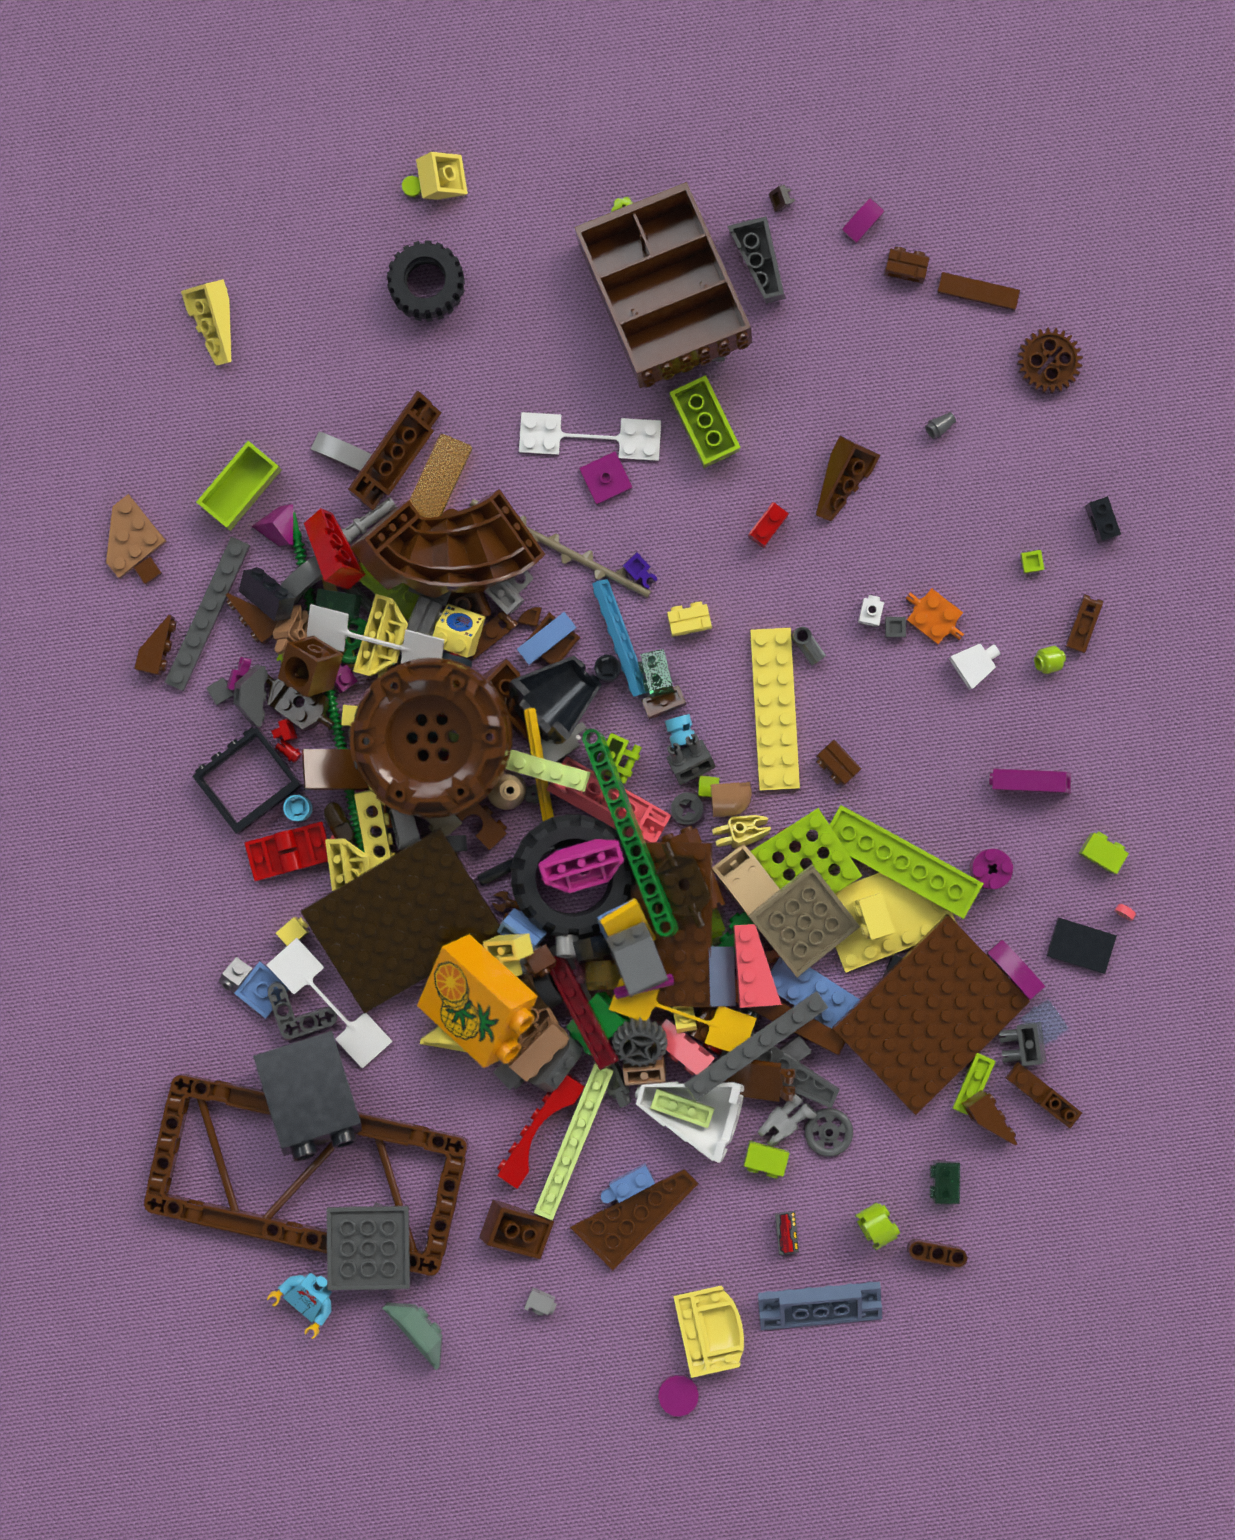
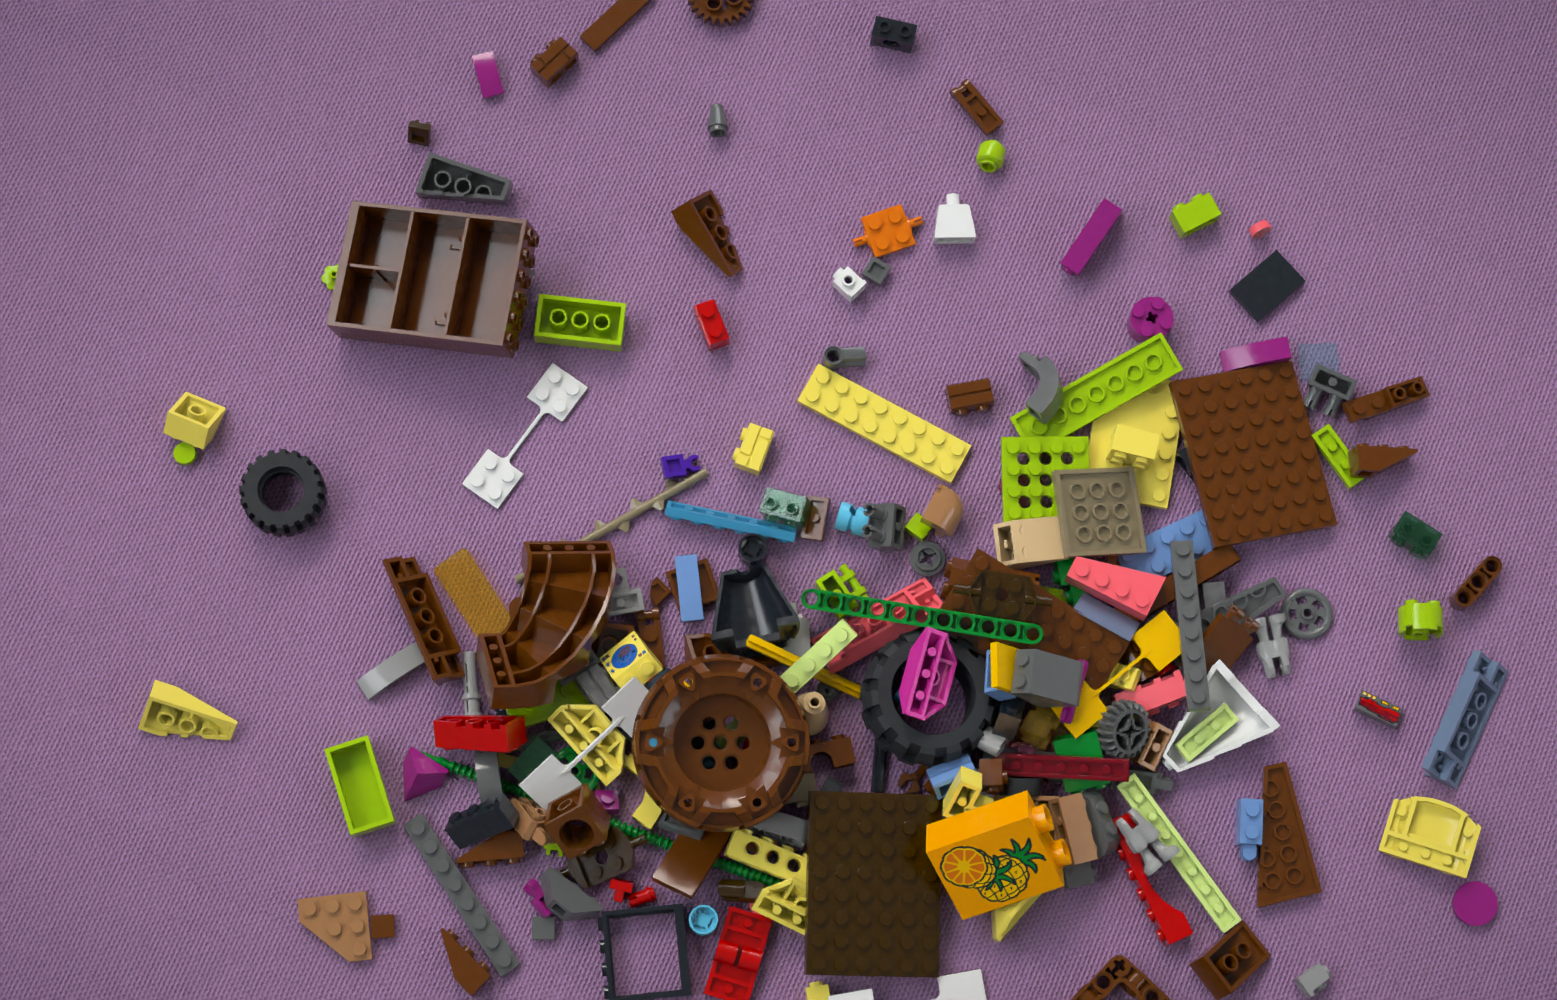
camera: 75 degrees left, 10 degrees down
(564, 1105) = (1145, 834): none -> light grey piece
(605, 478) = (573, 444): magenta plate -> none
(742, 831) = (979, 519): light yellow hinge -> none
(766, 1159) = (1298, 685): lime brick -> none
(875, 825) = (1048, 396): none -> dark grey arch
(1032, 561) = (892, 117): lime plate -> none

